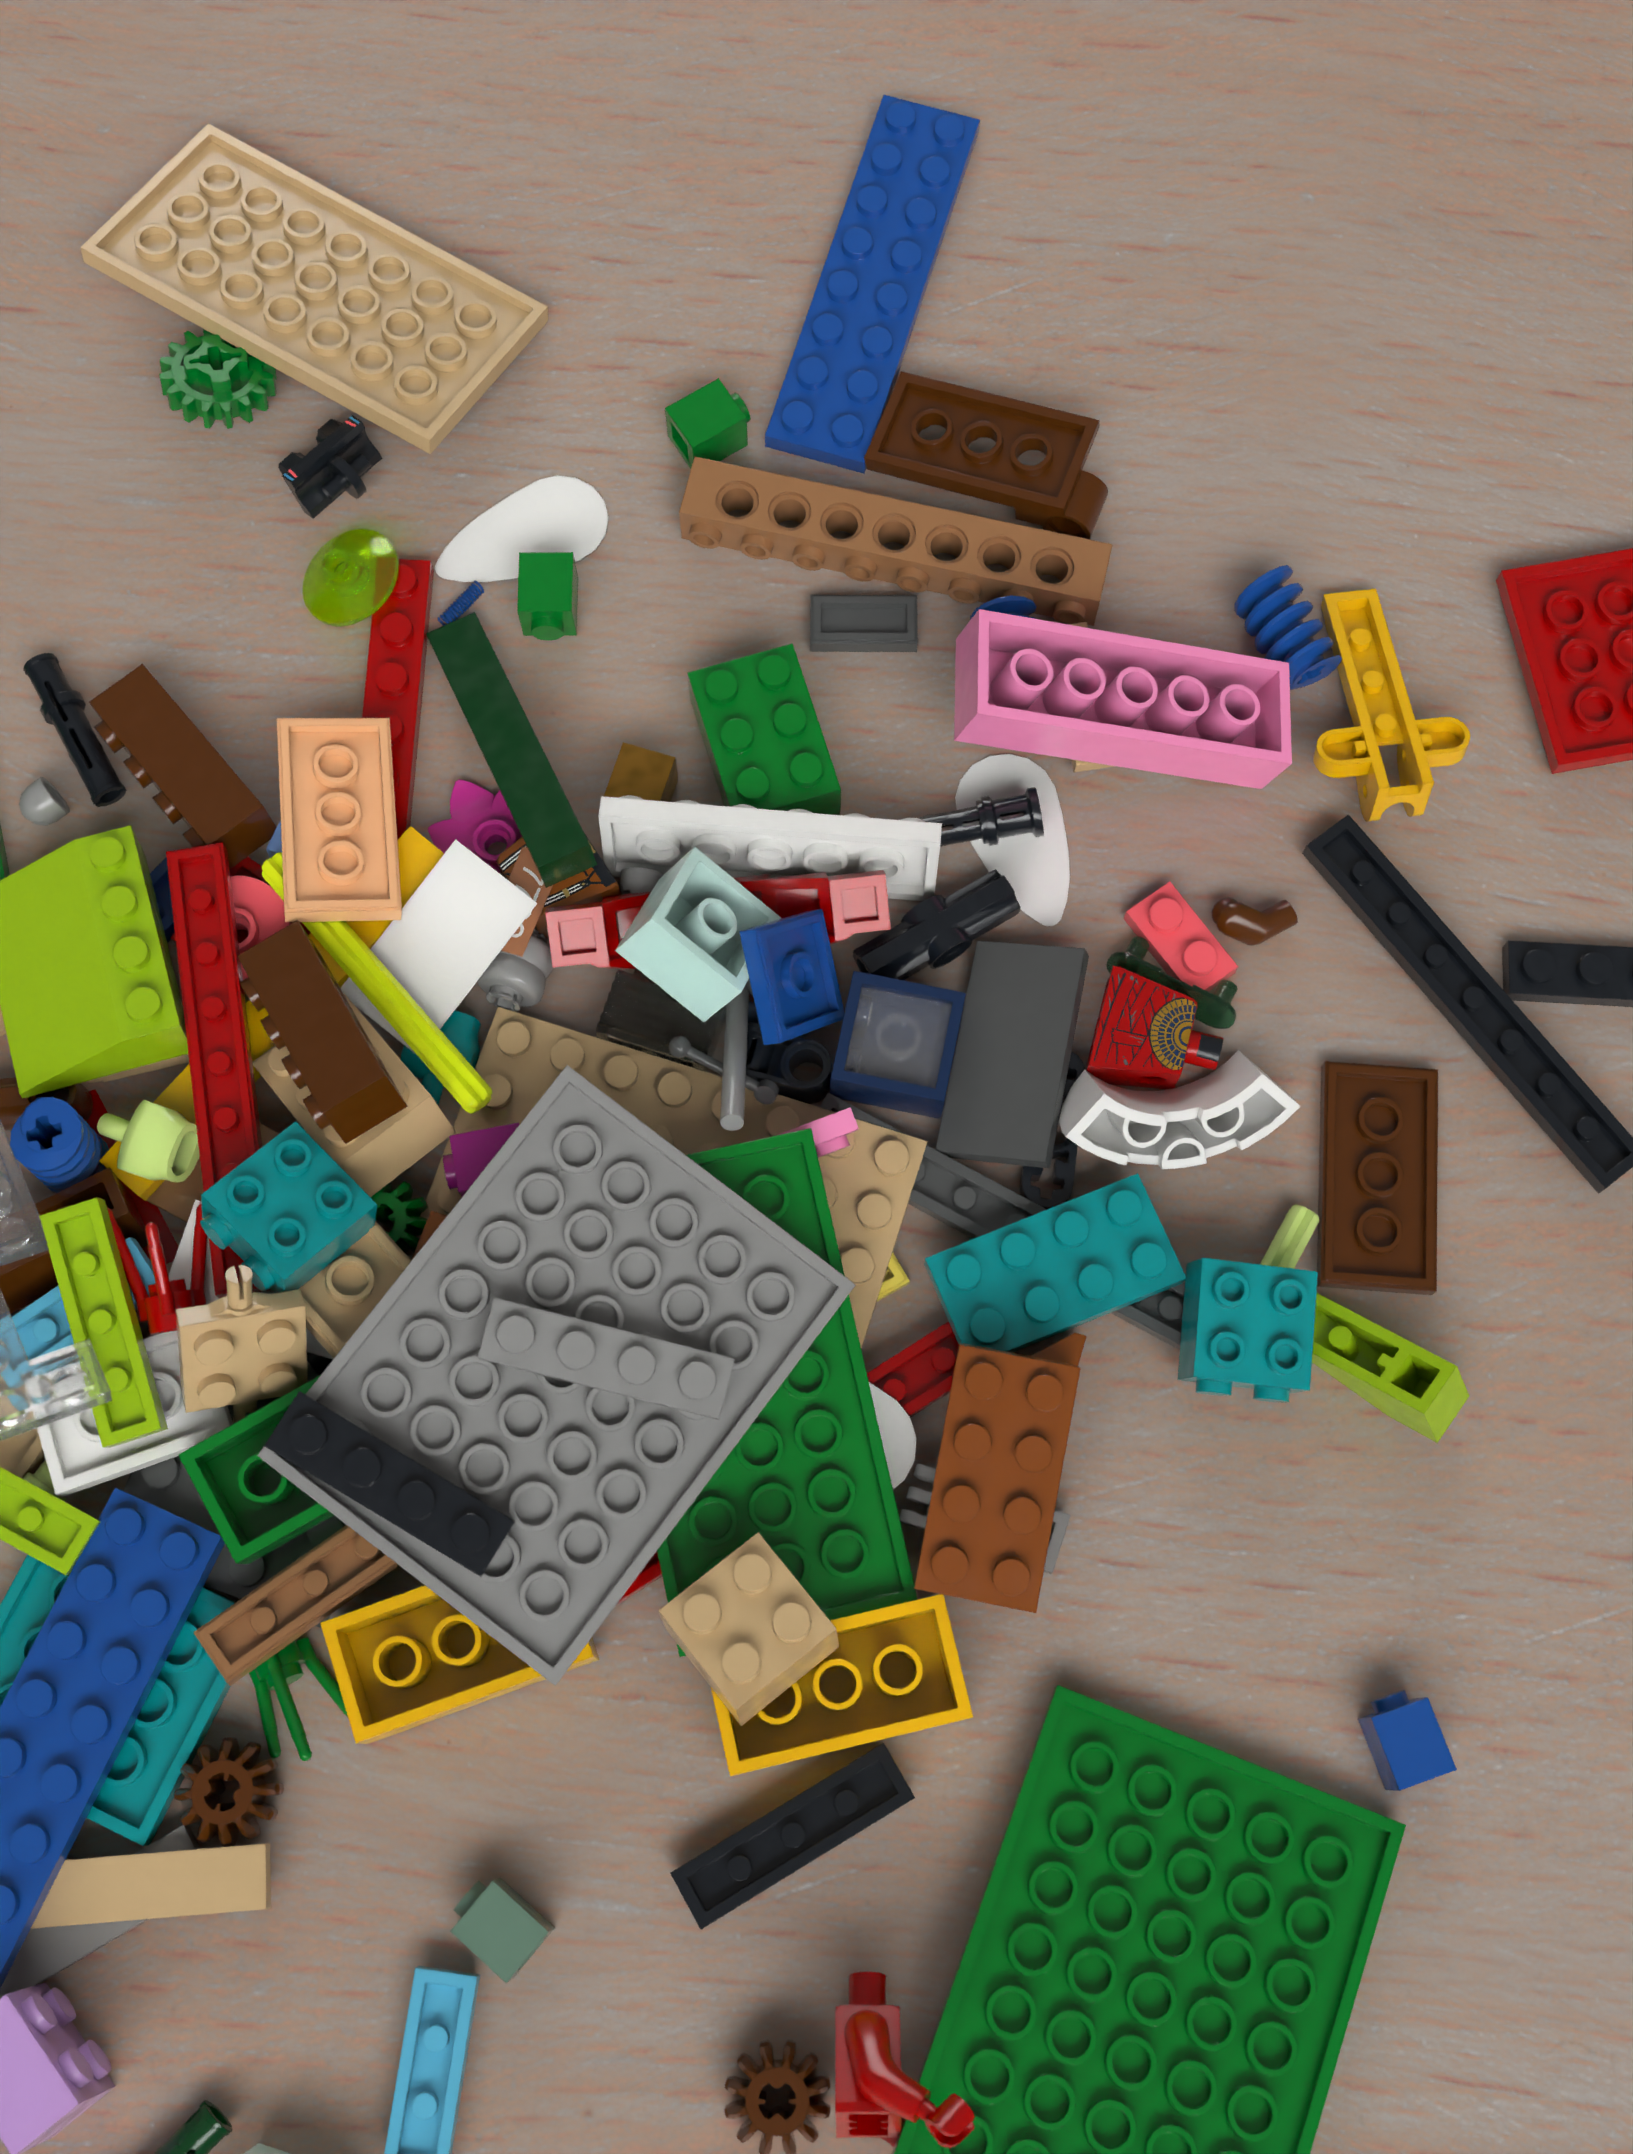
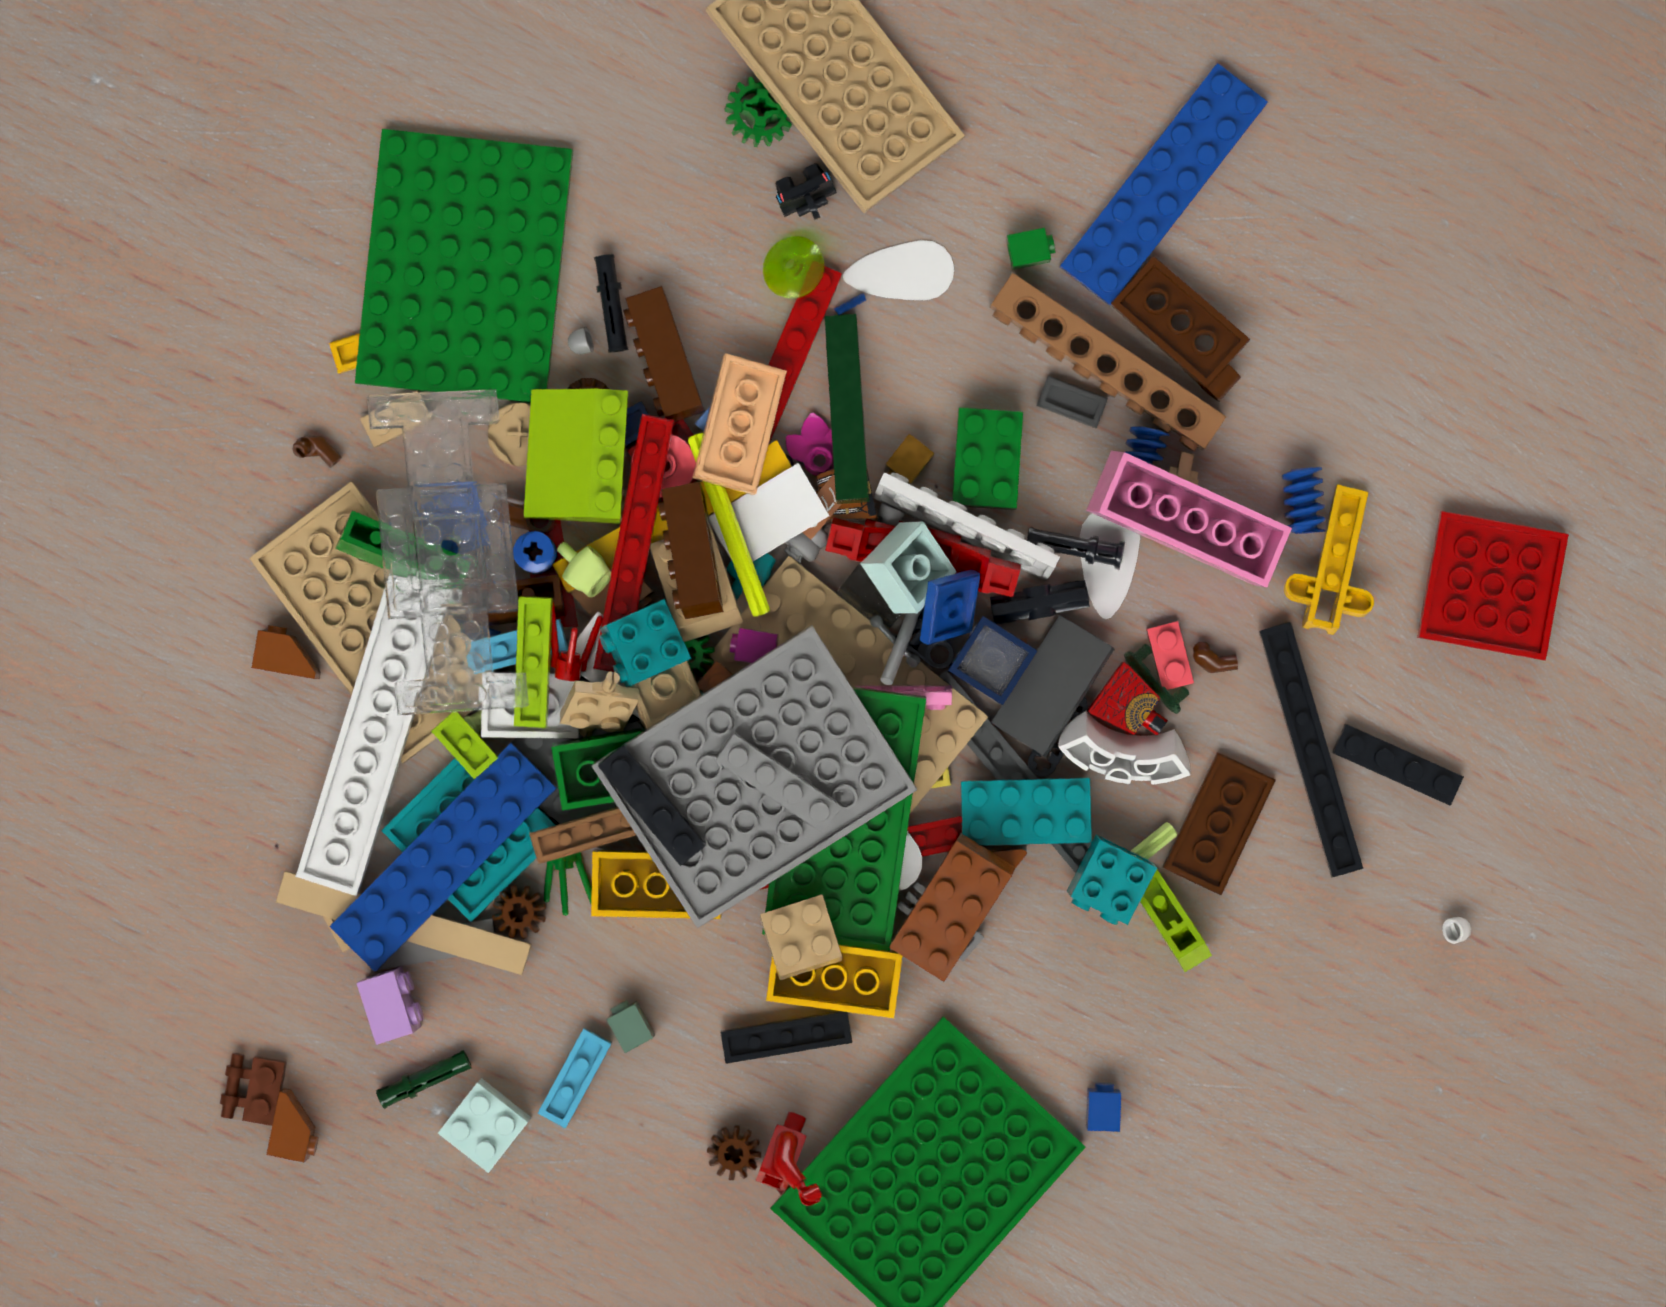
camera: 20 degrees right, 15 degrees up
(547, 594) = (900, 322): green brick -> none

